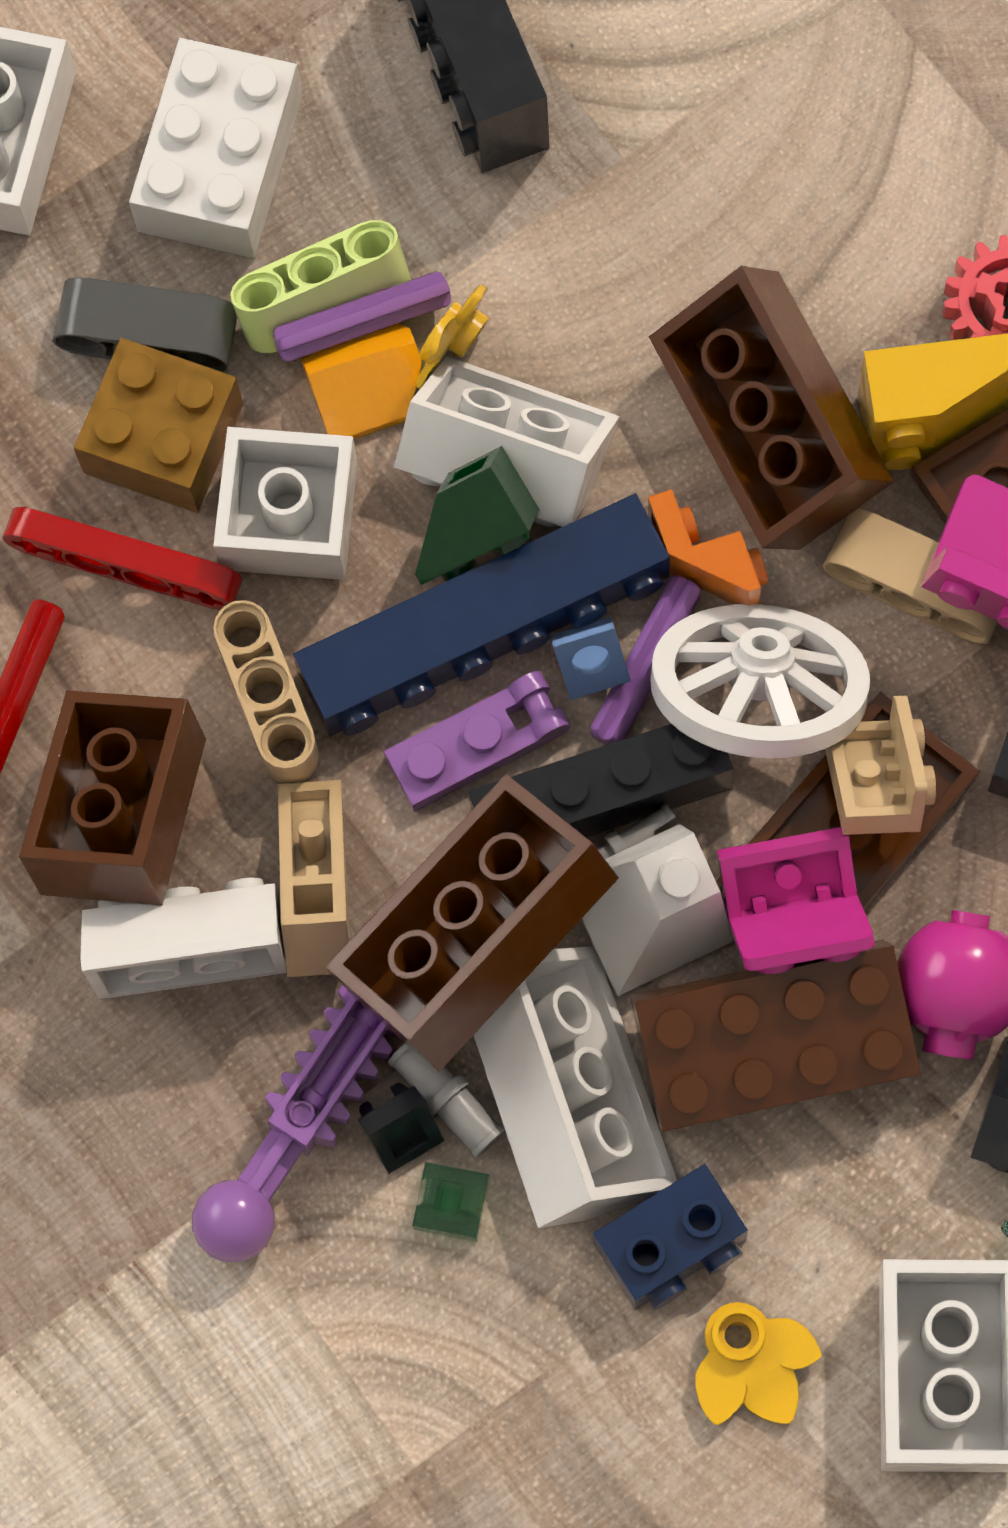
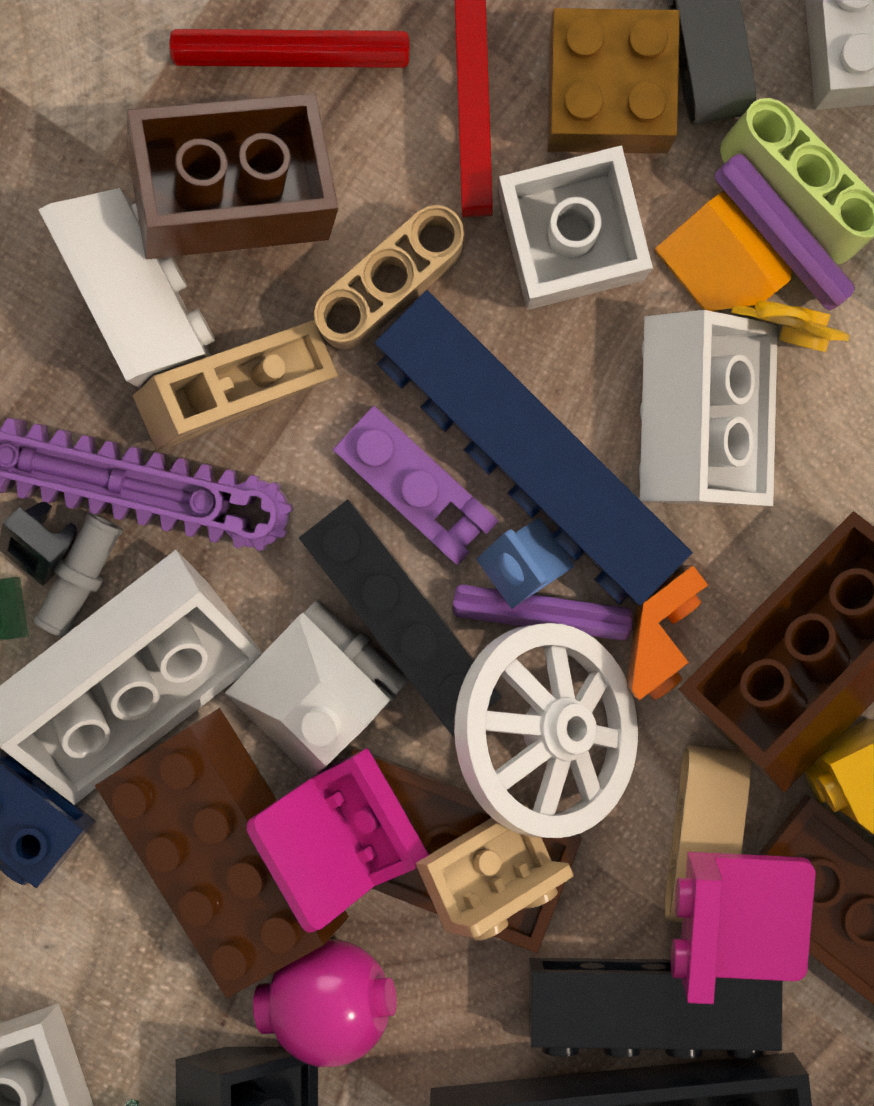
camera: 65 degrees right, 15 degrees up
(473, 513) = (619, 412): dark green slope -> none
(473, 922) = (202, 553): reddish brown brick -> none

